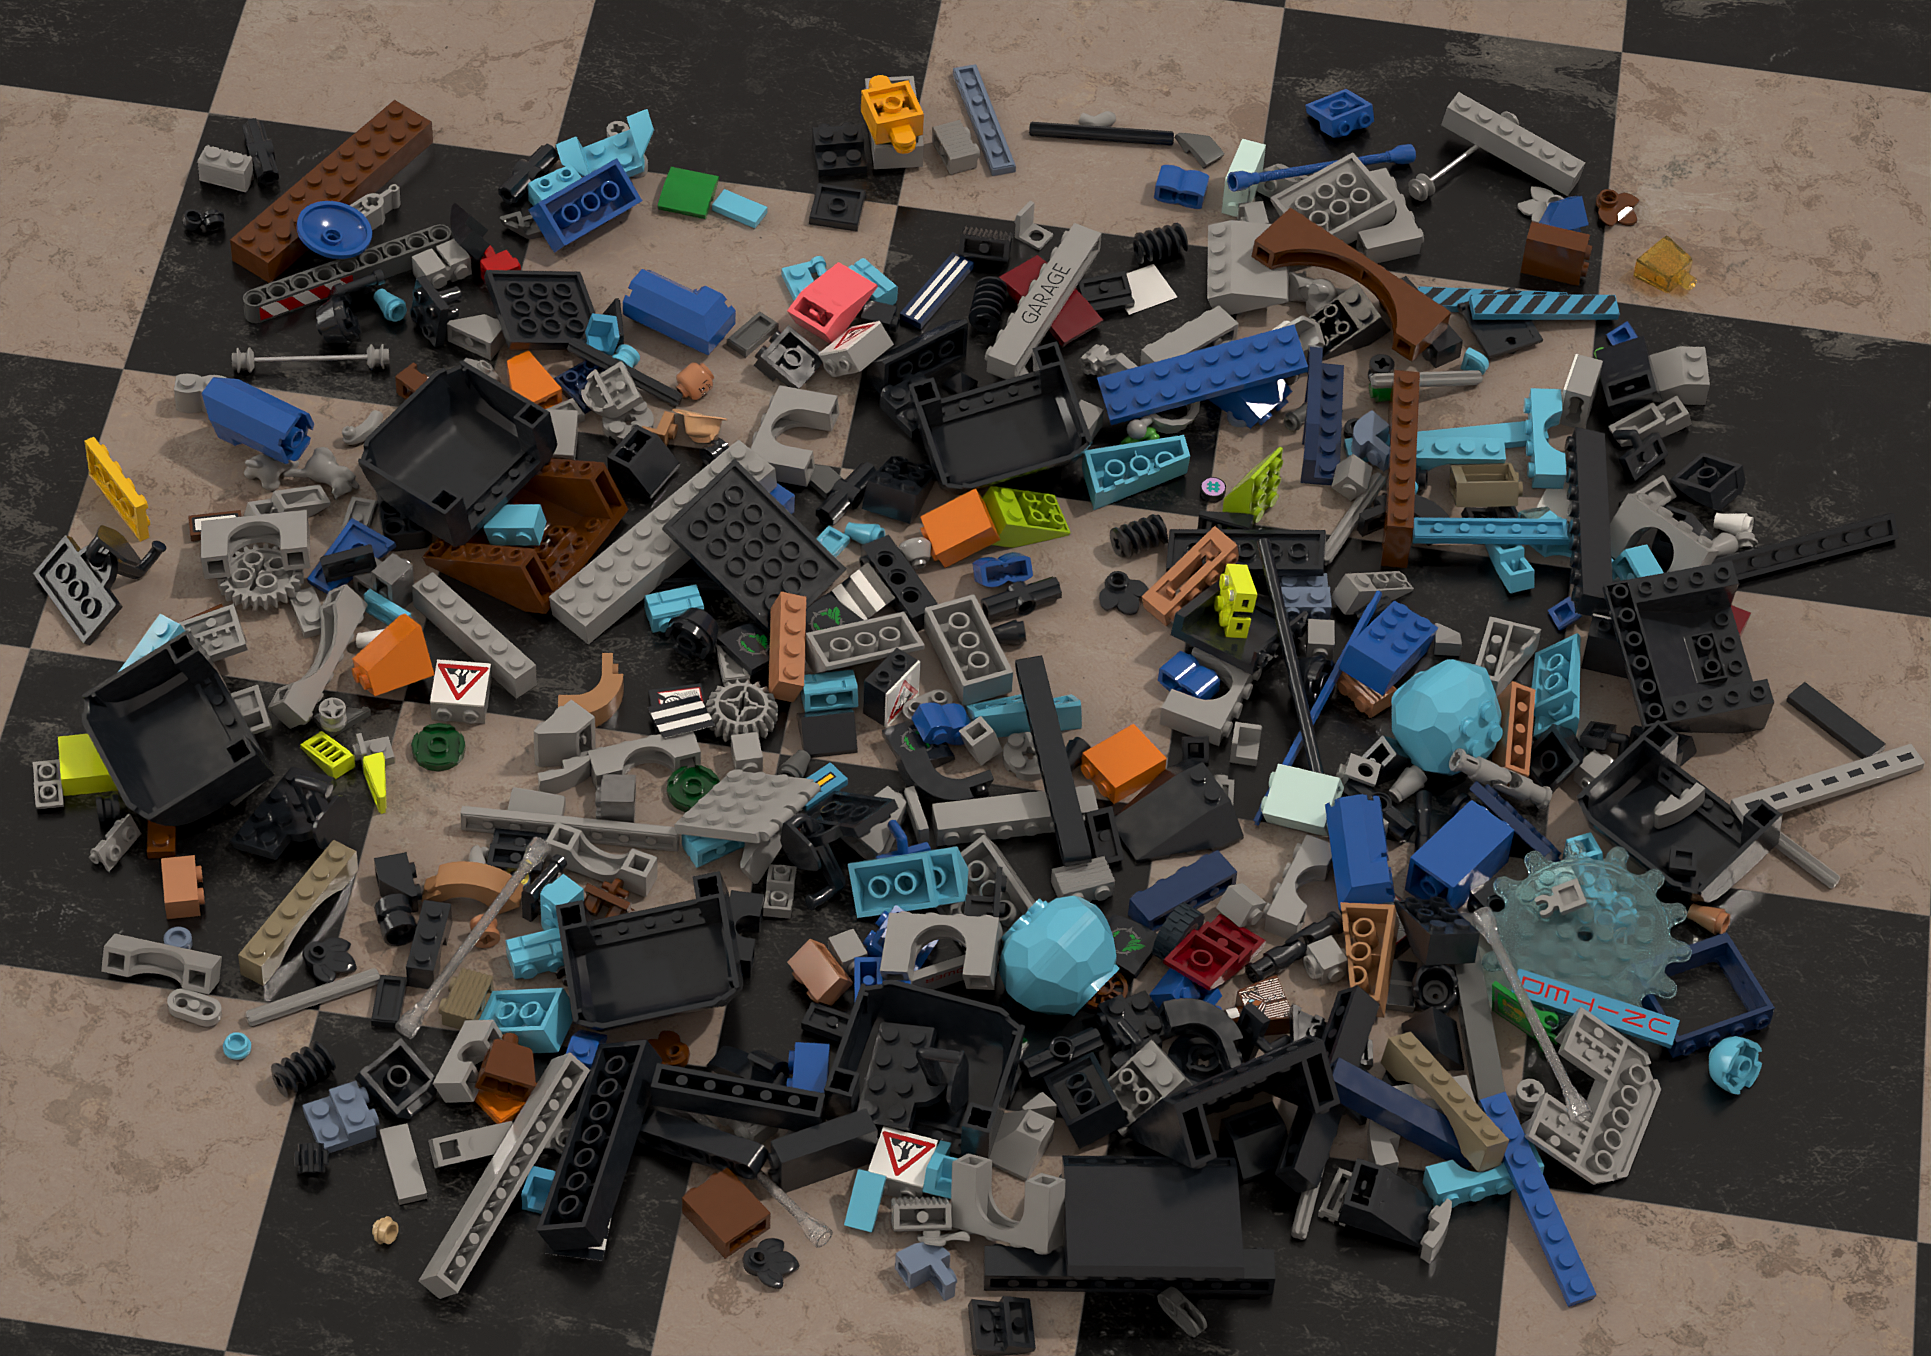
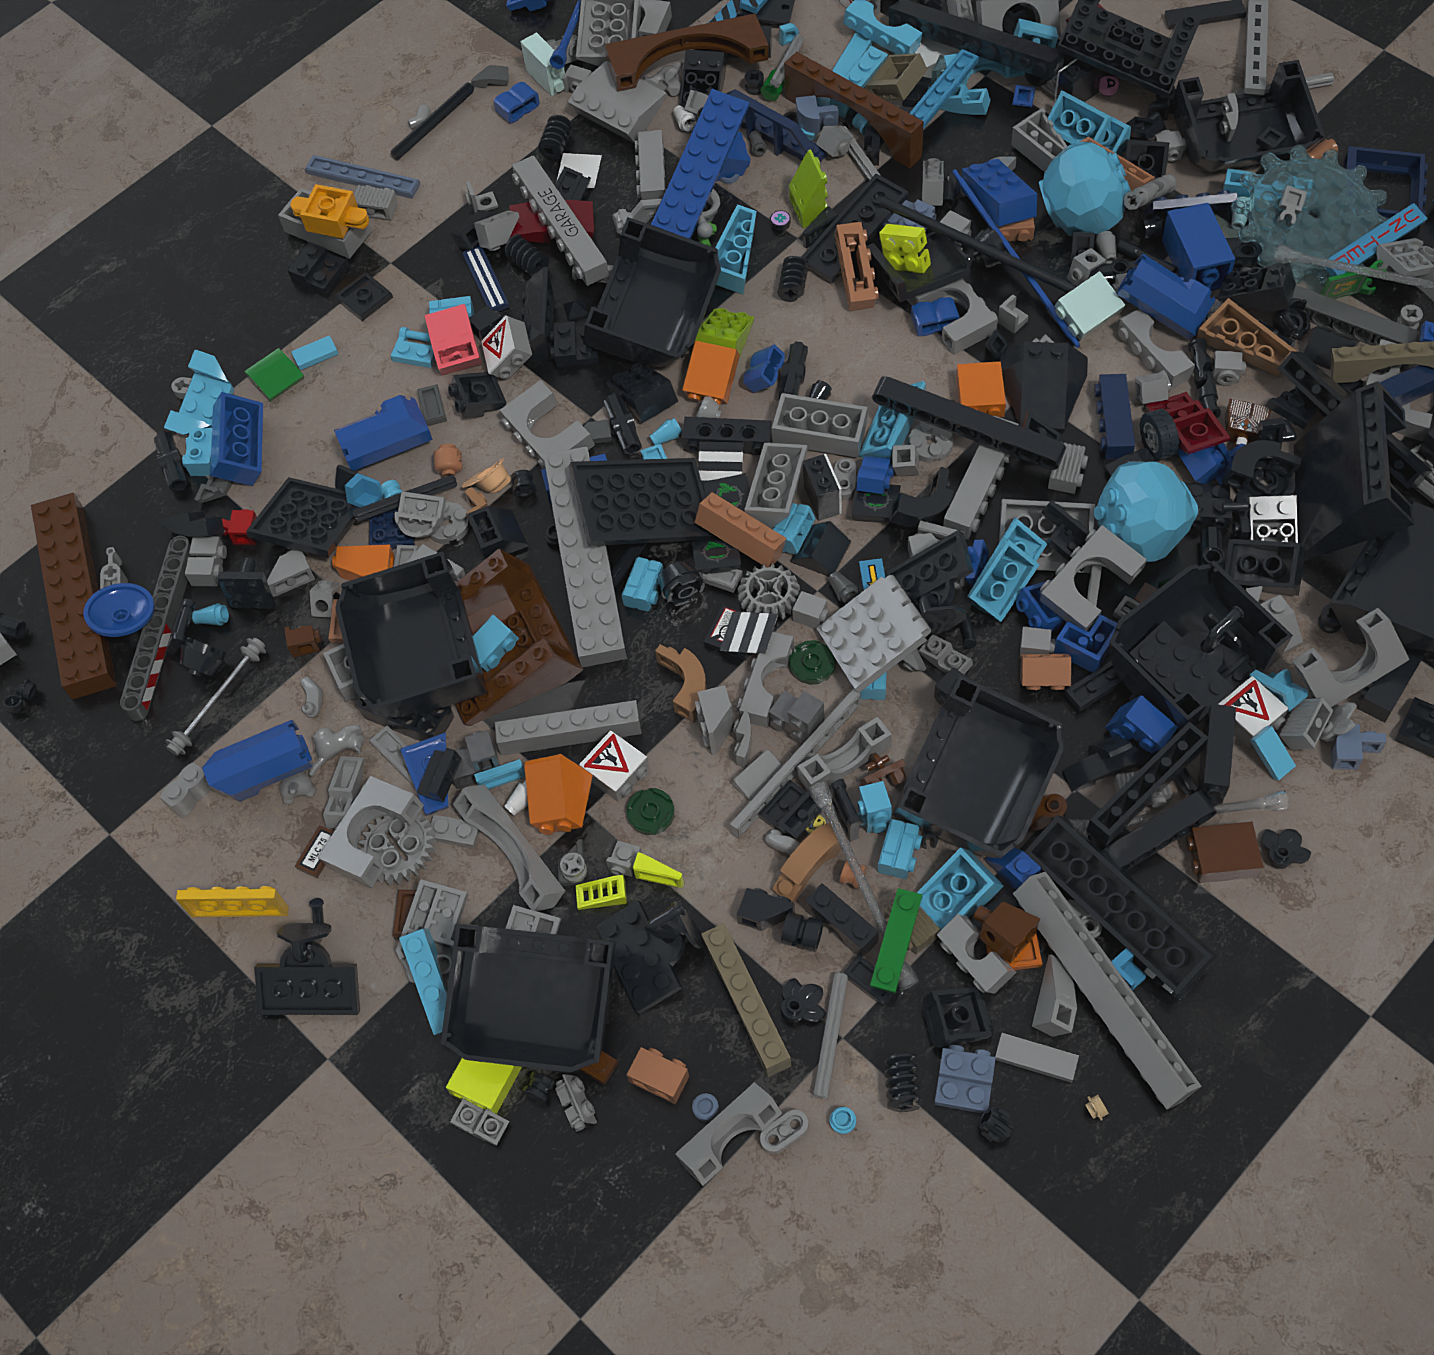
camera: 45 degrees left, 10 degrees up
(434, 989) = (896, 940): none -> green plate
(995, 259) = (496, 229): none -> light grey slope
(1122, 593) = (830, 315): black plate -> none

